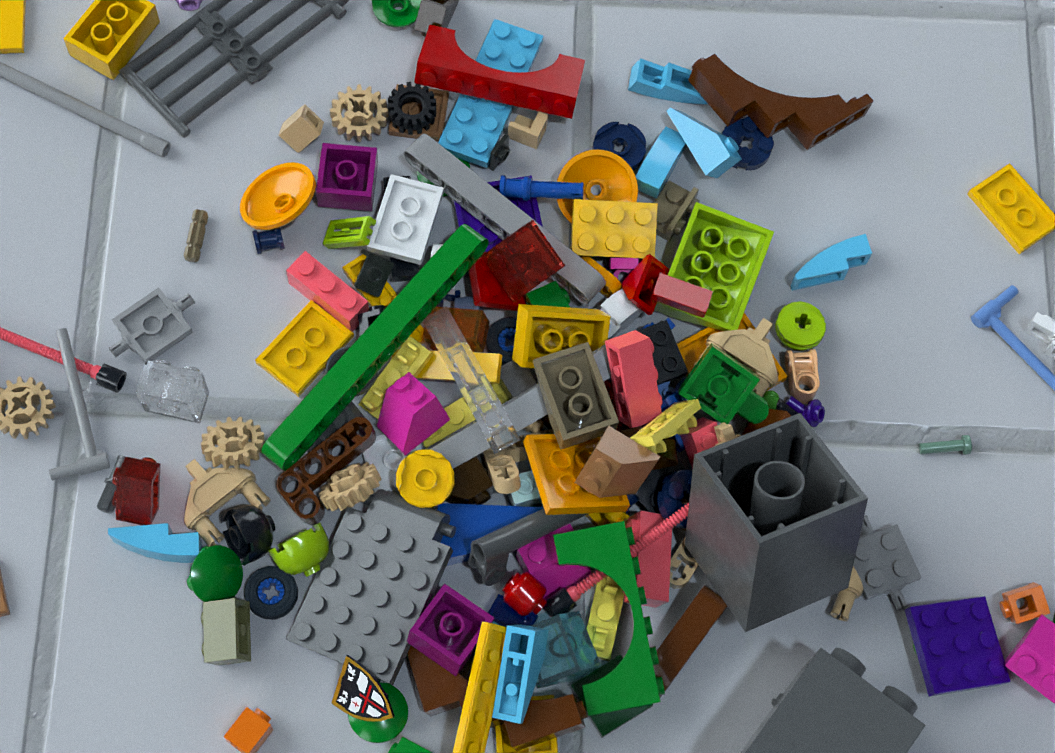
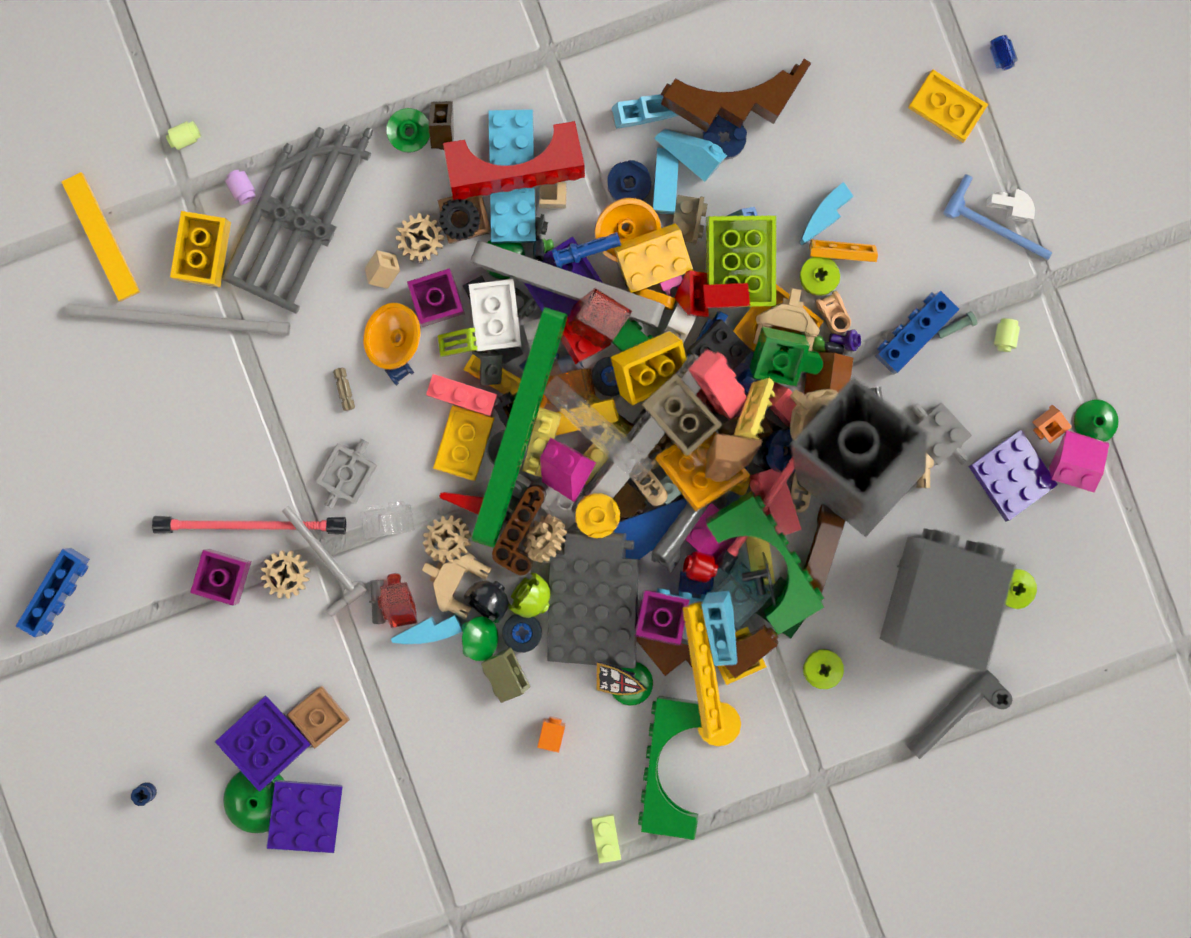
camera: 15 degrees left, 20 degrees up
(271, 407) = (466, 502): none -> red slope
(445, 228) = (527, 308): none -> pearl dark grey bracket
(491, 172) = (540, 247): none -> black arm
(591, 629) = (758, 576): none -> black shield
(838, 309) = (843, 250): none -> light orange tile
(893, 432) = (916, 332): none -> blue brick
(1003, 478) = (1007, 335): none -> yellowish green brick

